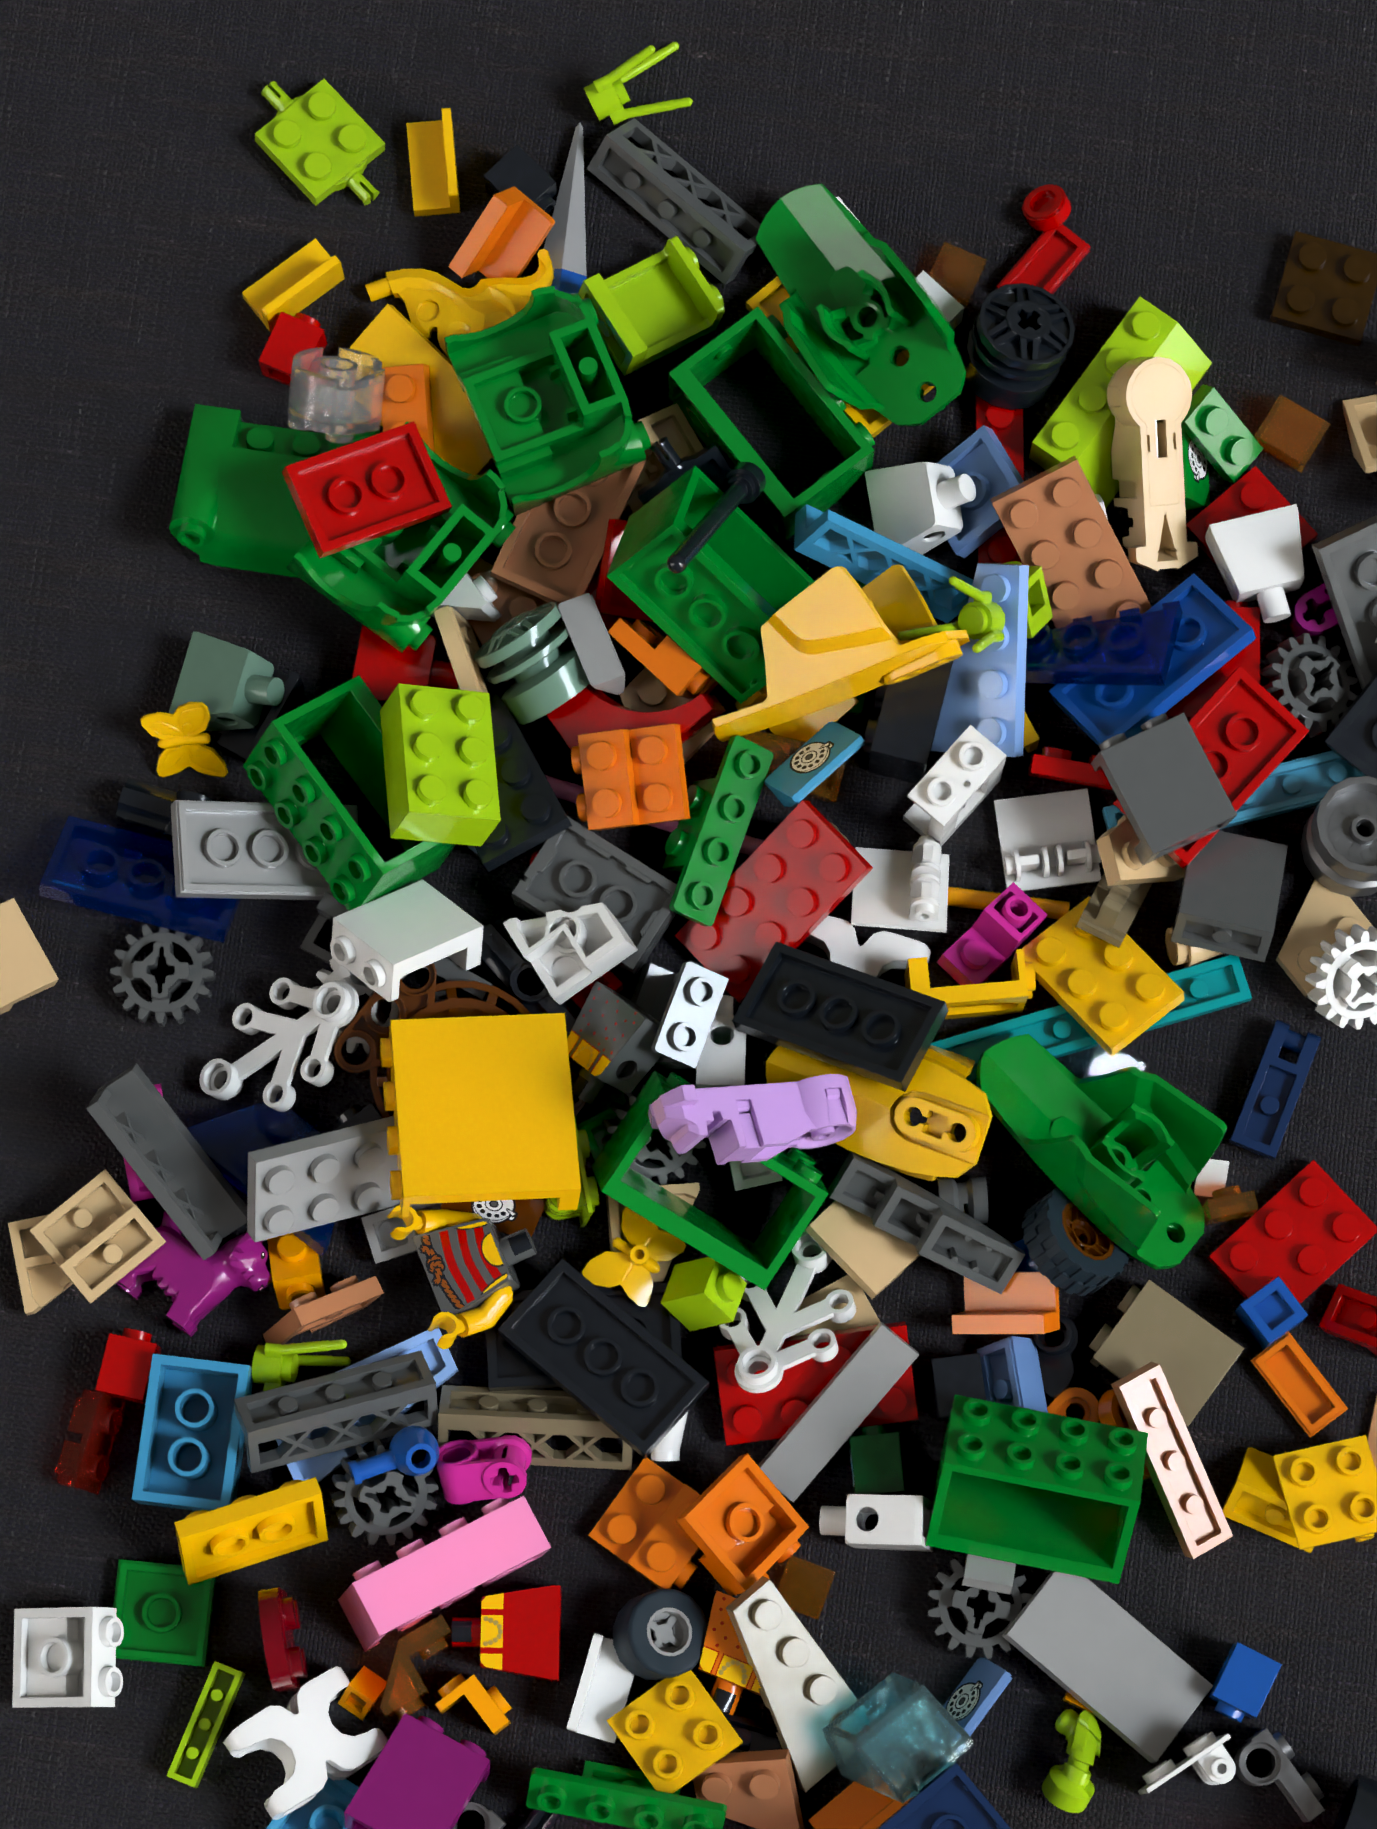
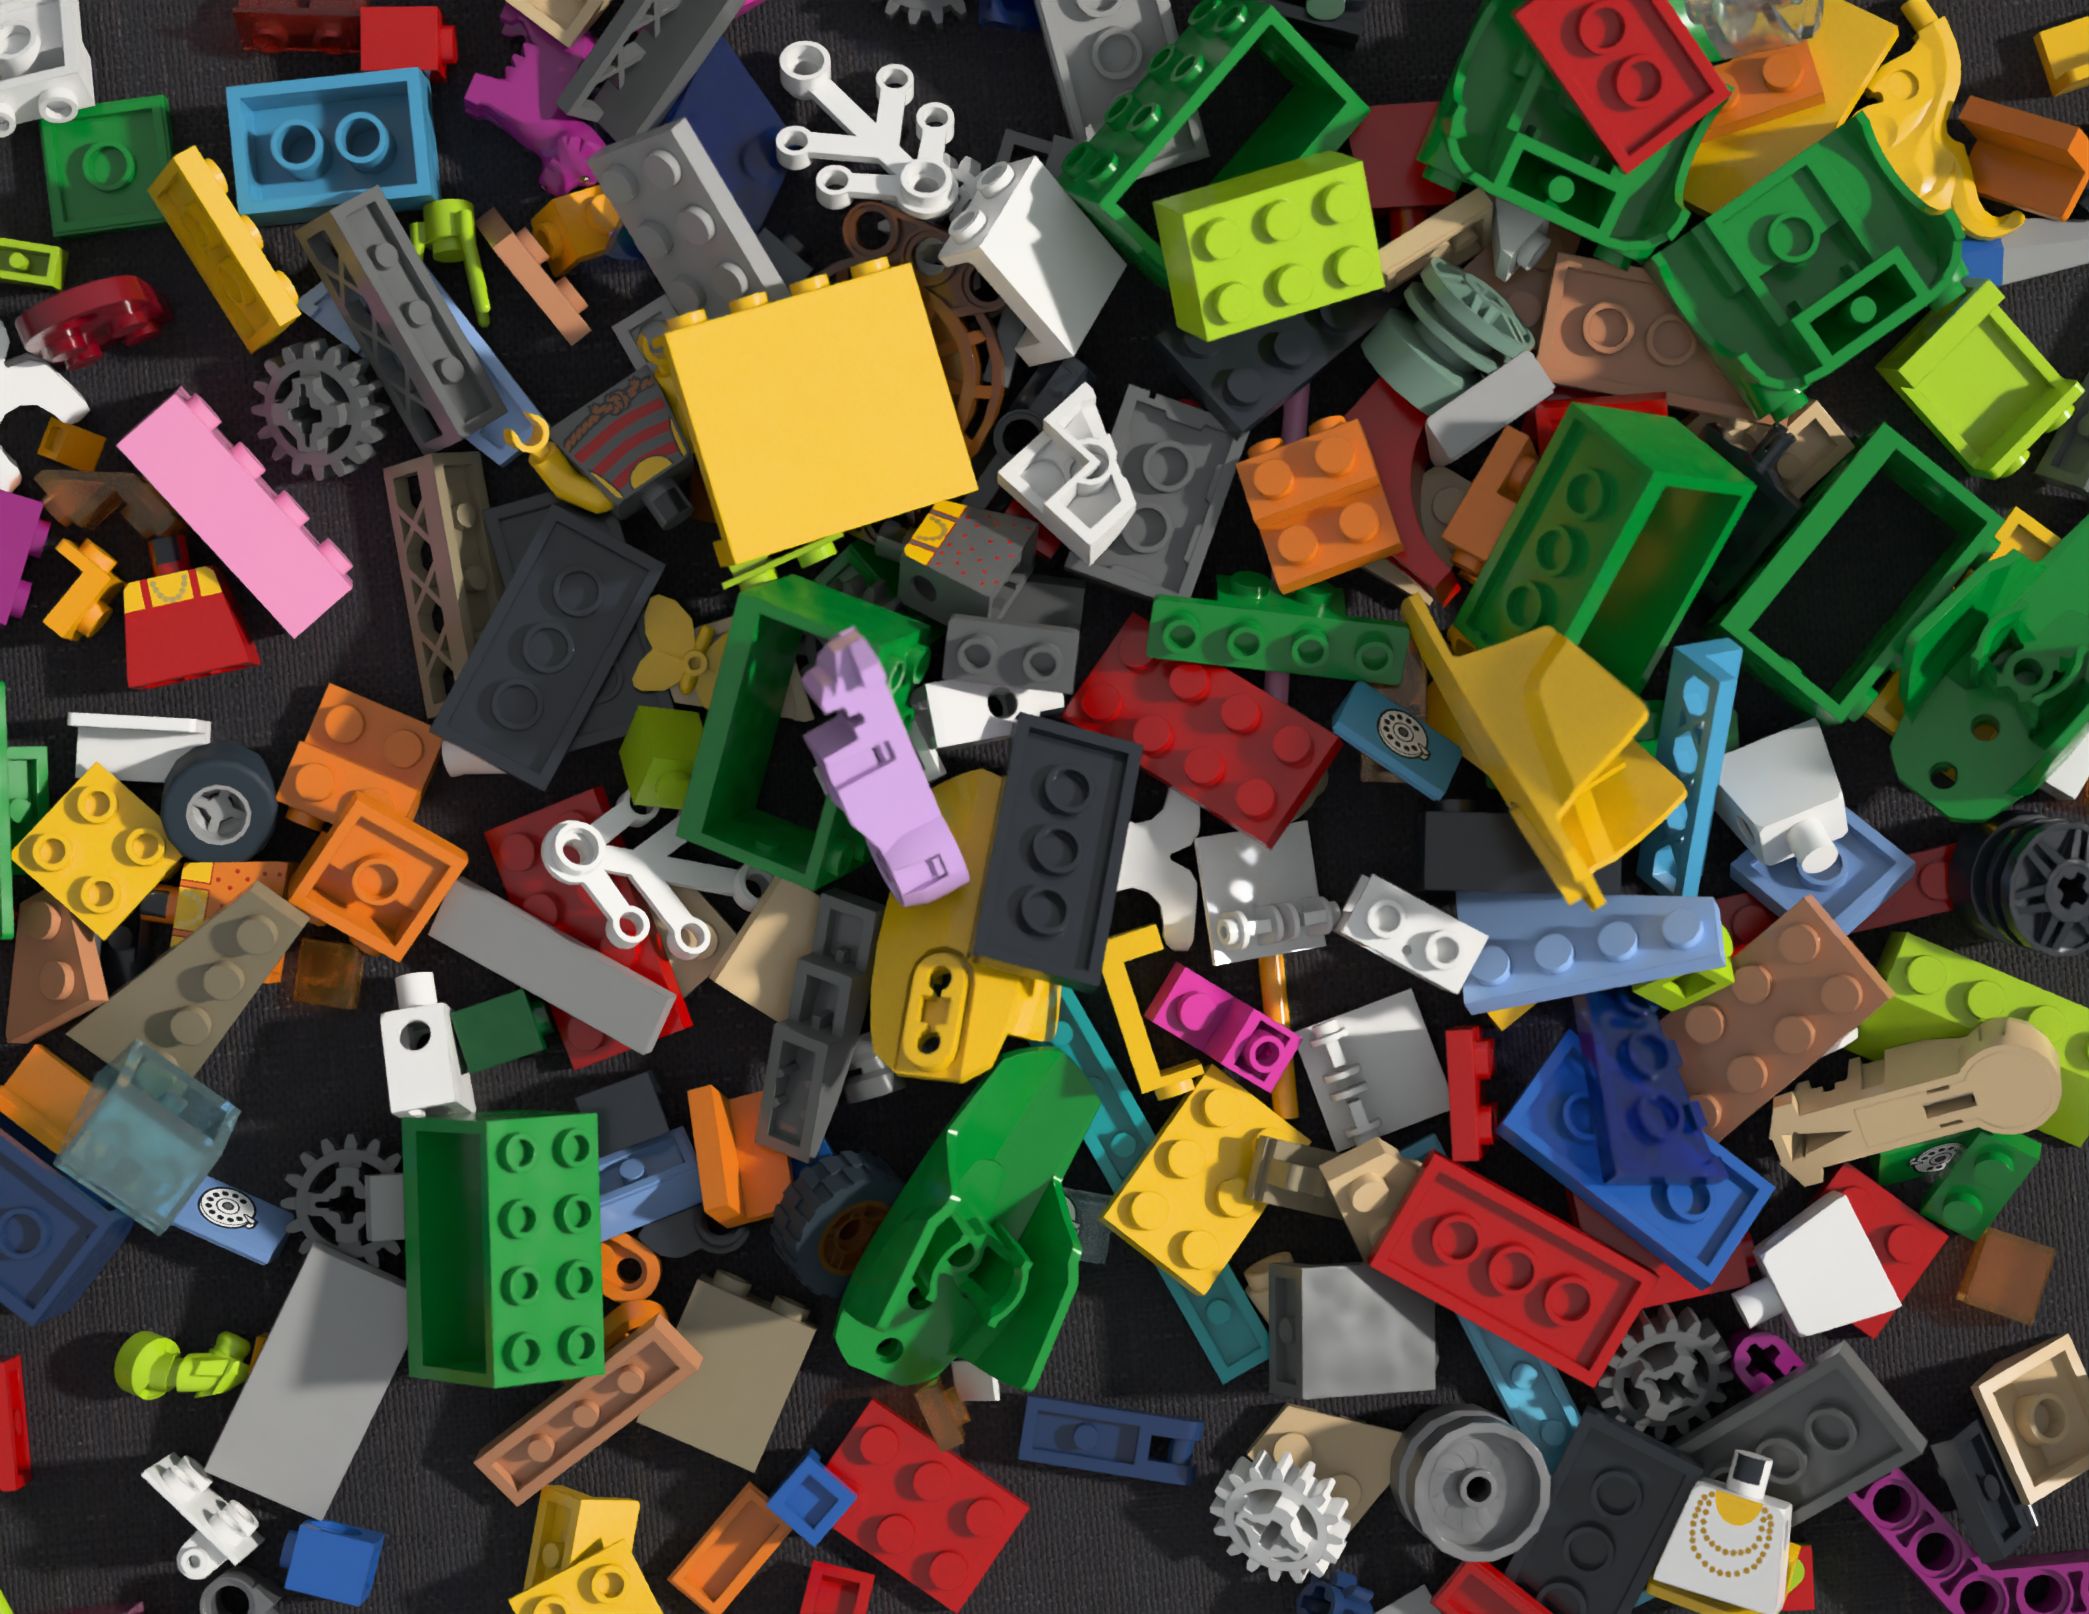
camera: 80 degrees right, 10 degrees up
(399, 1456) = (374, 419): blue bar -> none
(478, 1472) = (374, 523): dark pink piece -> none
(741, 486) = (1746, 557): black piece -> none
(980, 619) = (1630, 913): lime plant -> none
(1165, 786) = (1465, 1213): dark grey panel -> none

